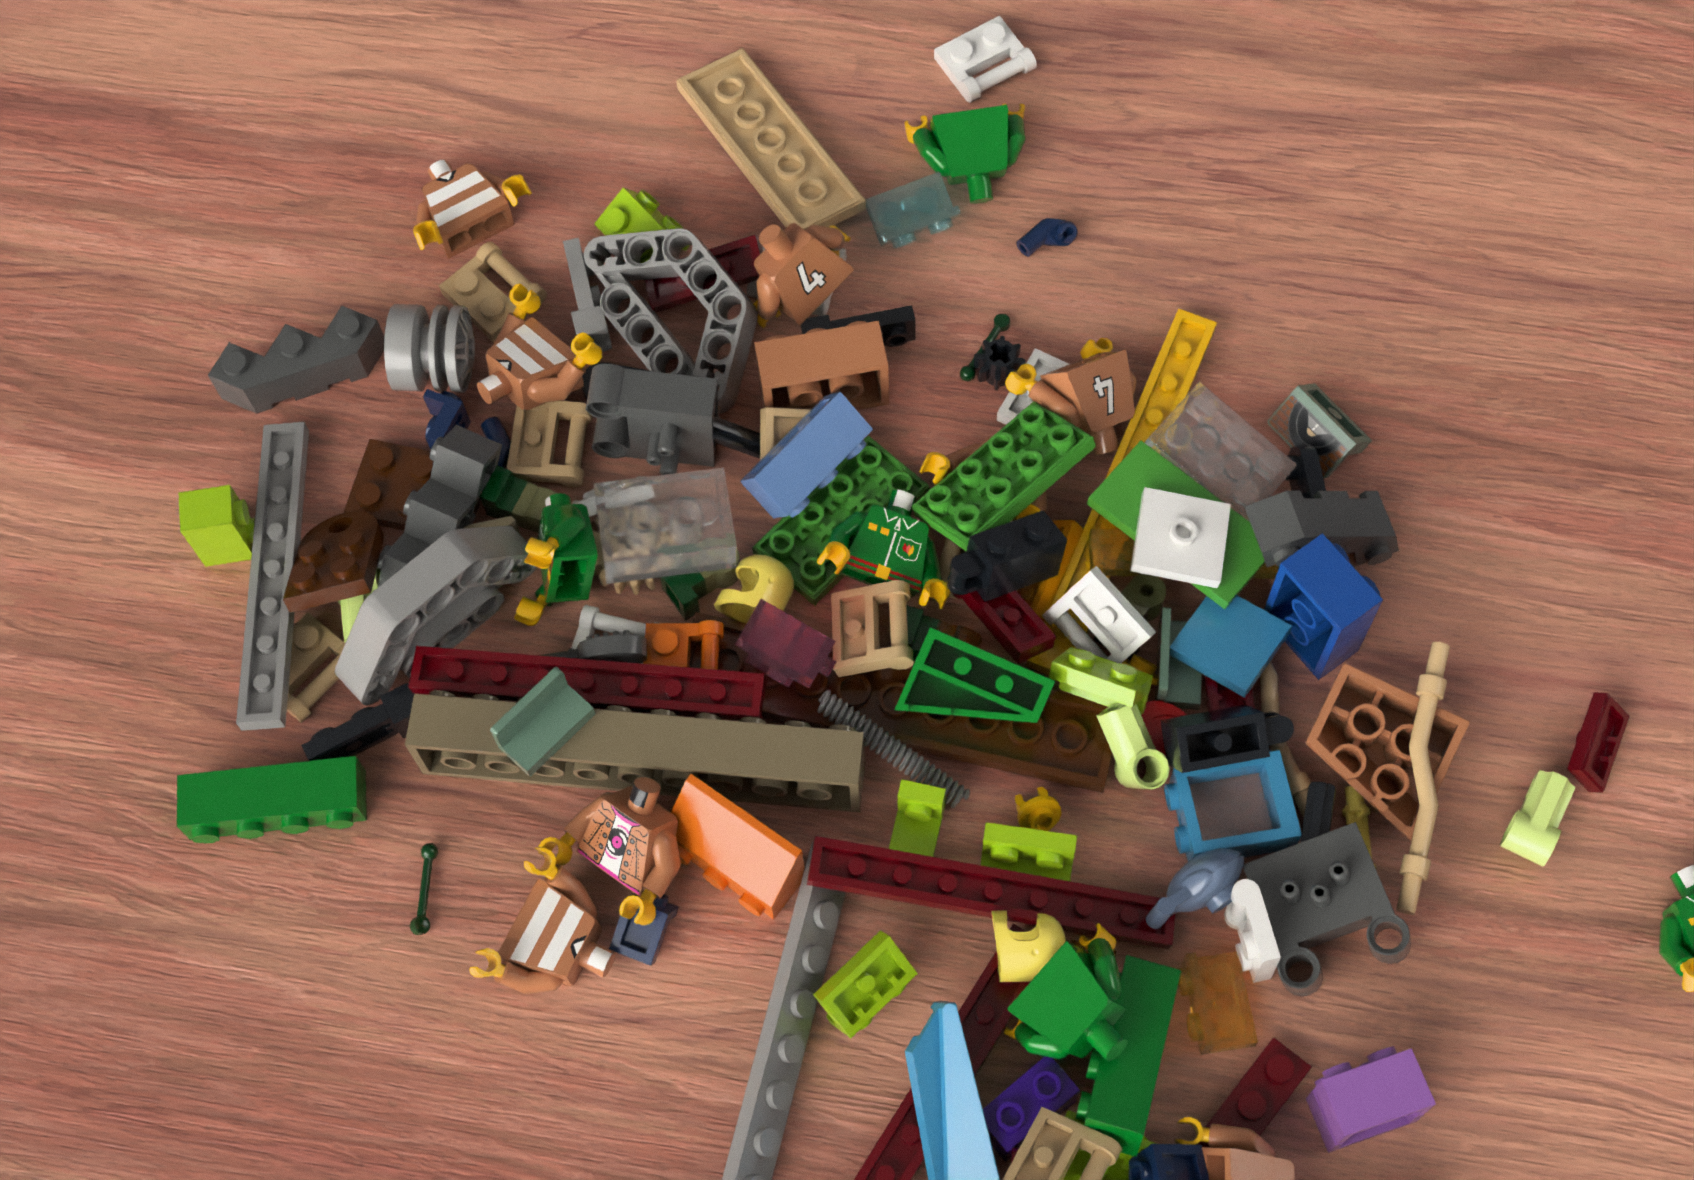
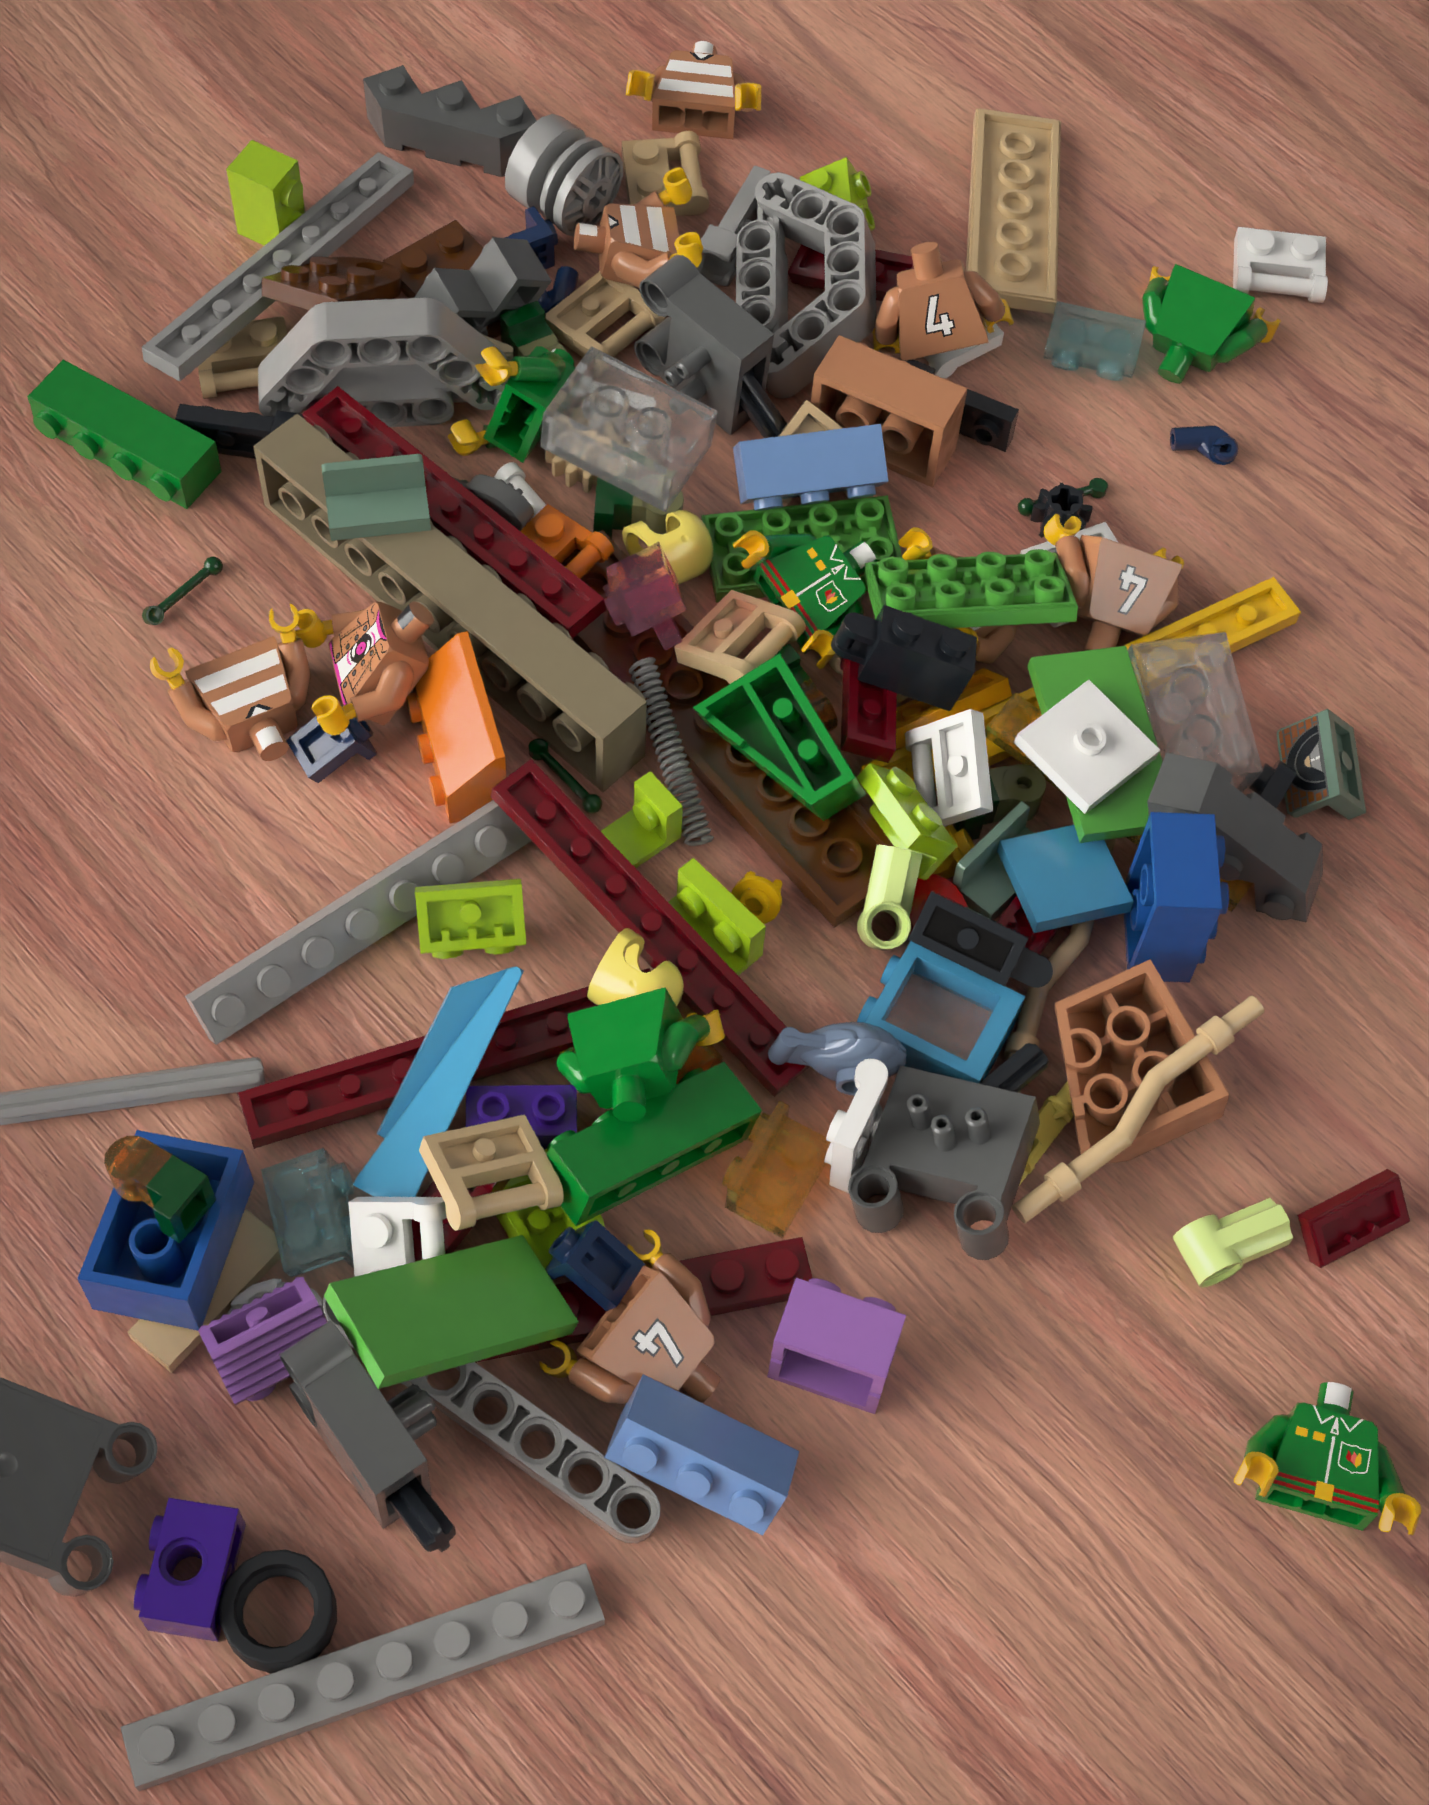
camera: 30 degrees right, 5 degrees down
(790, 815) = (539, 751): none -> dark green hinge

